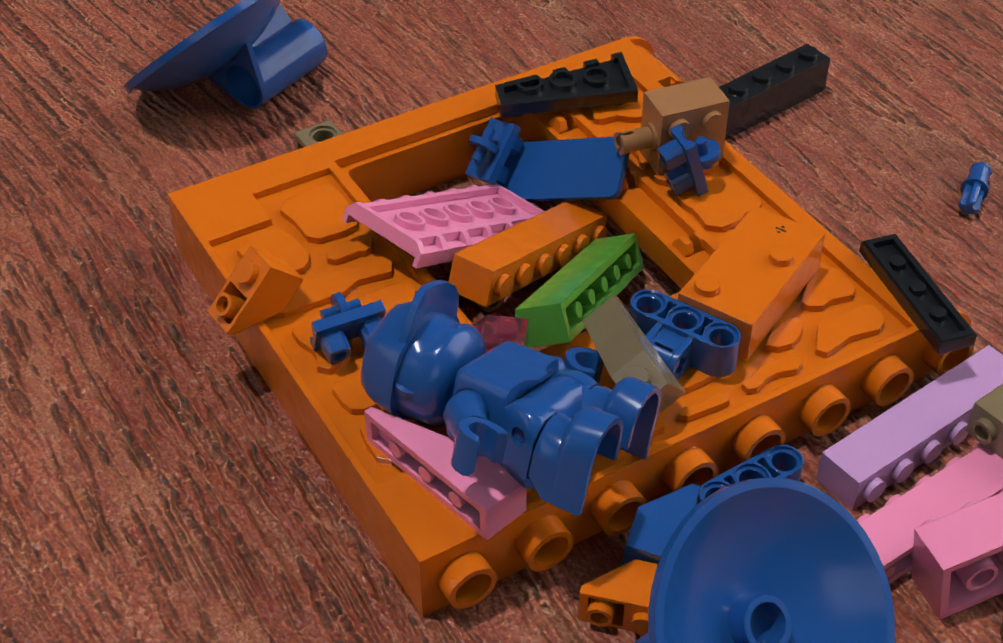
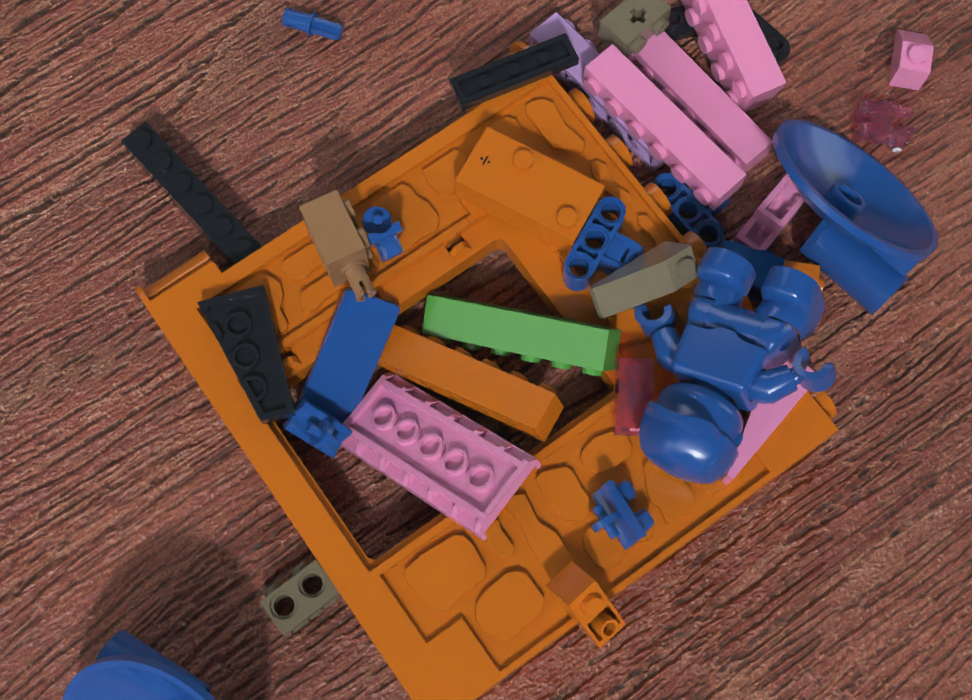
camera: 95 degrees left, 30 degrees up
(877, 433) = (662, 127): none -> bright pink brick

